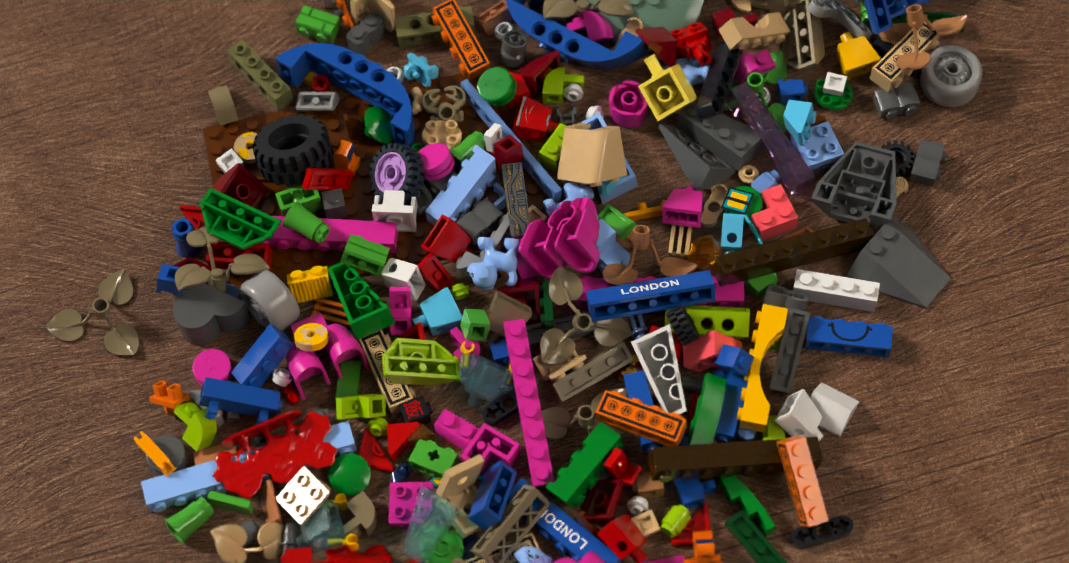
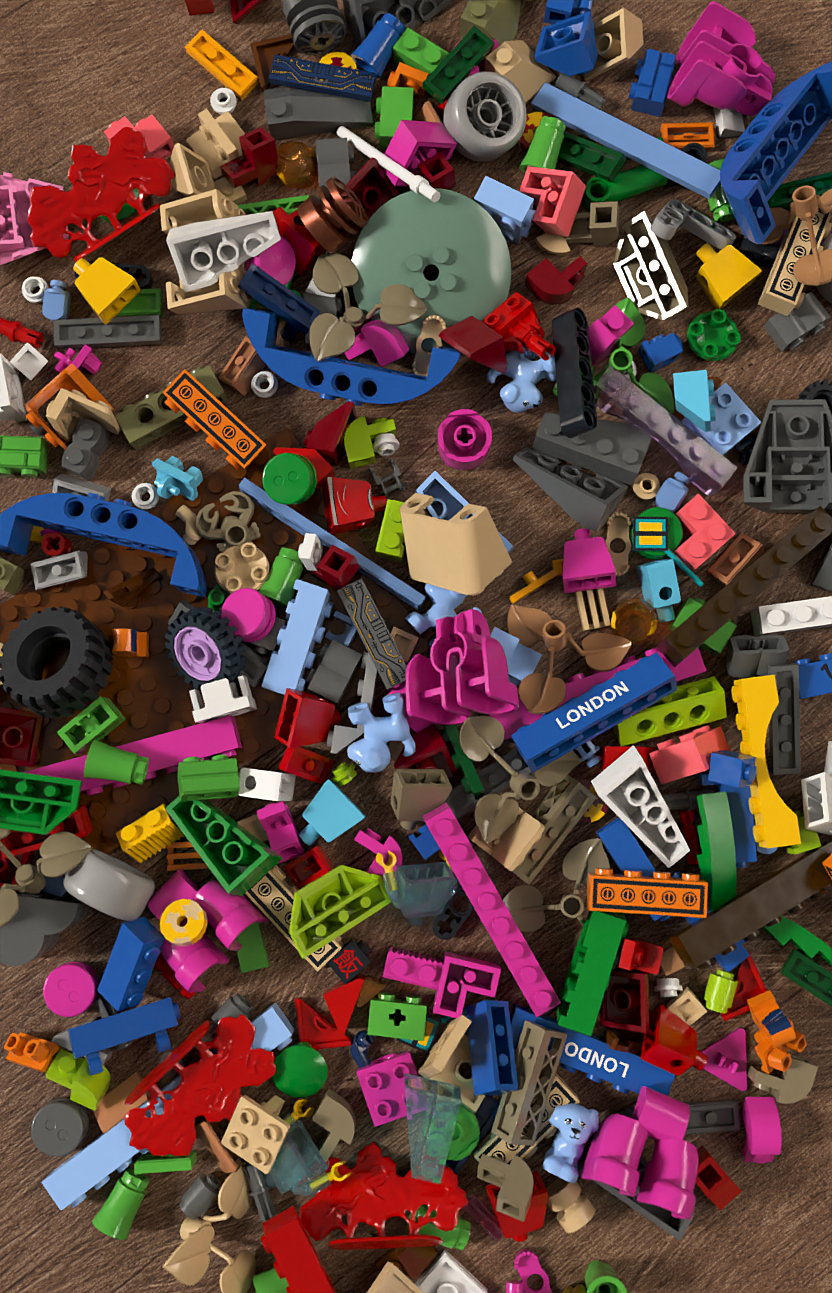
camera: 20 degrees left, 20 degrees up
(155, 454) = (44, 1144): light orange piece -> none
(282, 377) = (163, 982): plate -> none
(327, 179) = (117, 689): red tile -> none
(334, 204) = (139, 712): flat silver brick -> none
(361, 406) = (278, 976): lime brick -> none
(378, 124) = (152, 580): green dish -> none
(378, 426) = (310, 994): lime plate -> none
(475, 324) = (384, 824): bright green brick -> none
(513, 48) = (287, 408): dark grey wheel -> none
(594, 110) = (424, 466): white plate -> none
(617, 221) = (506, 611): bright green tile -> none
(667, 89) = (513, 411): light yellow brick -> none
(682, 325) = (649, 741): black tyre -> none
(741, 34) = (587, 298): tan arch -> none
(834, 84) = (716, 326): white plate -> none

